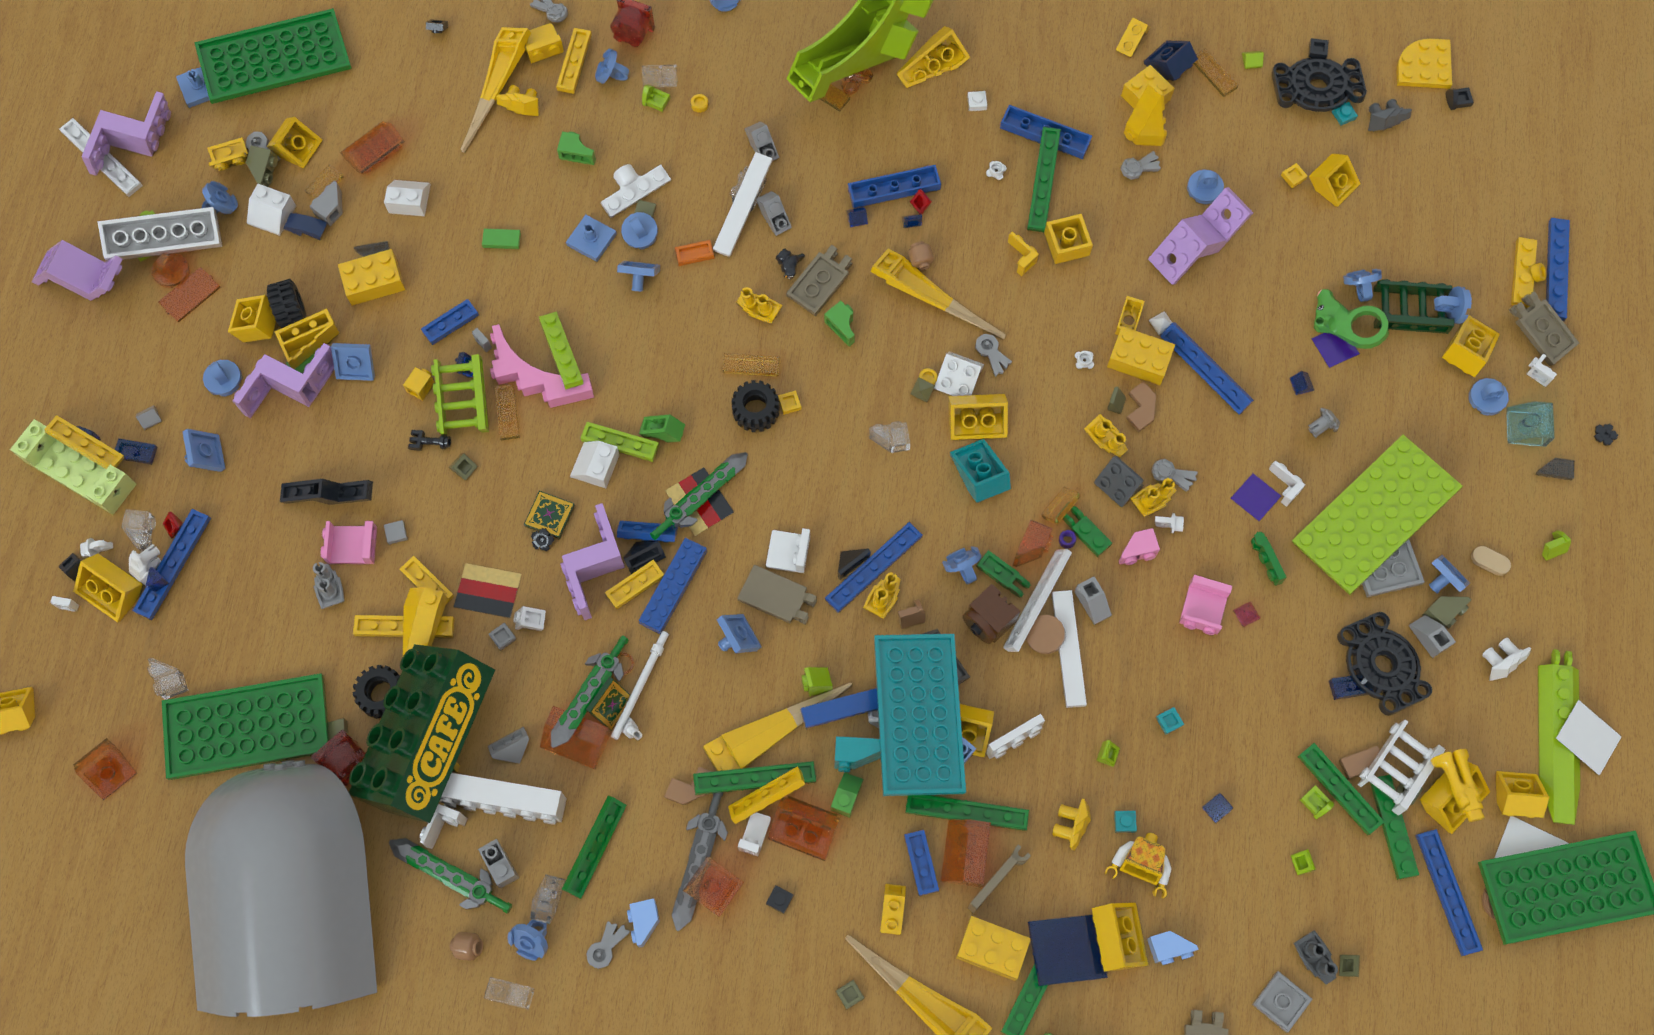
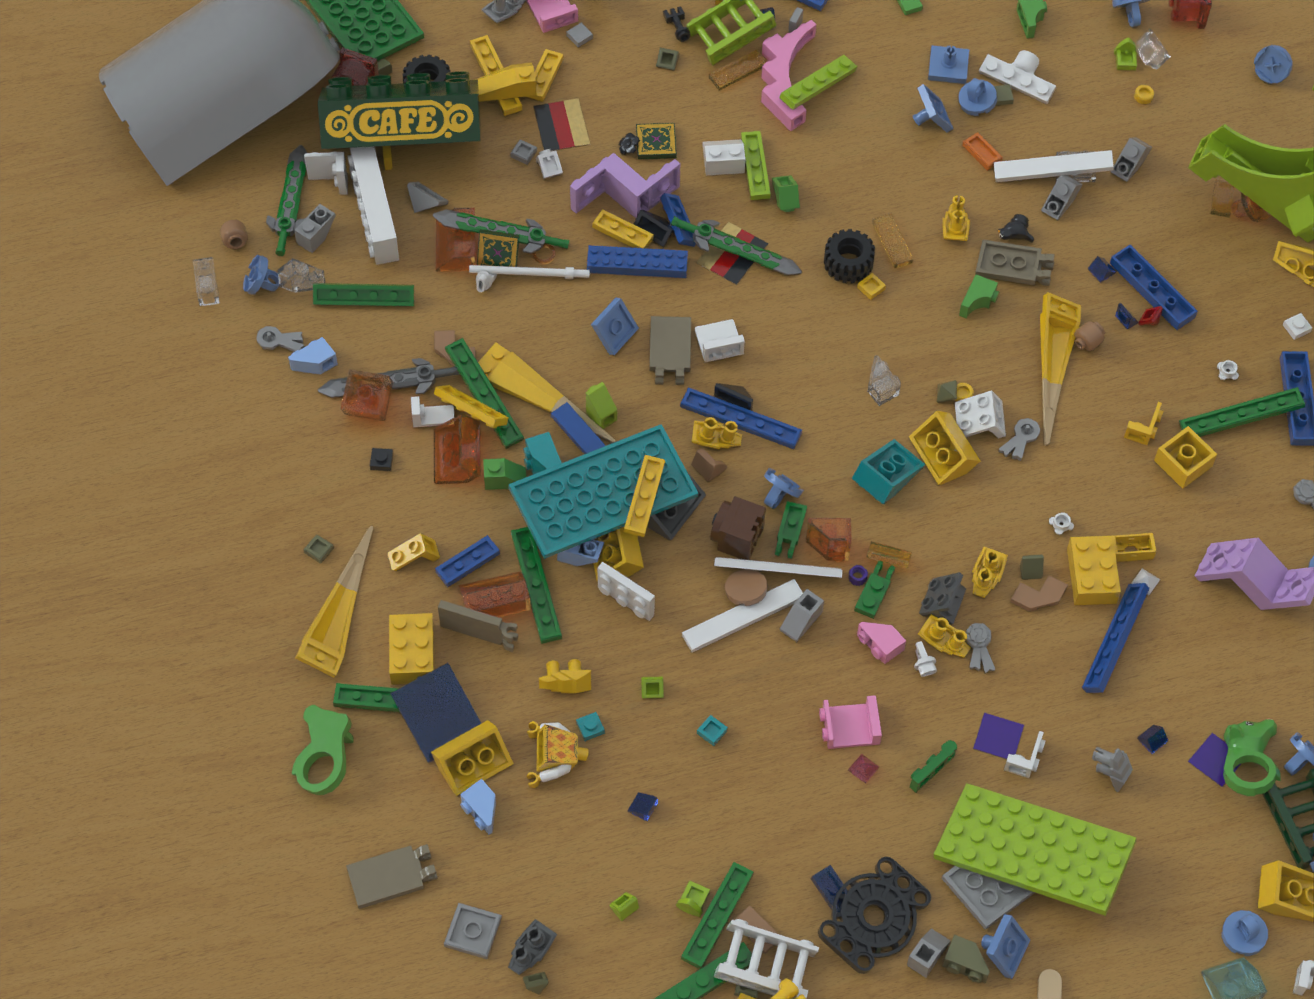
camera: 65 degrees right, 10 degrees down
(944, 680) = (644, 496): none -> yellow plate

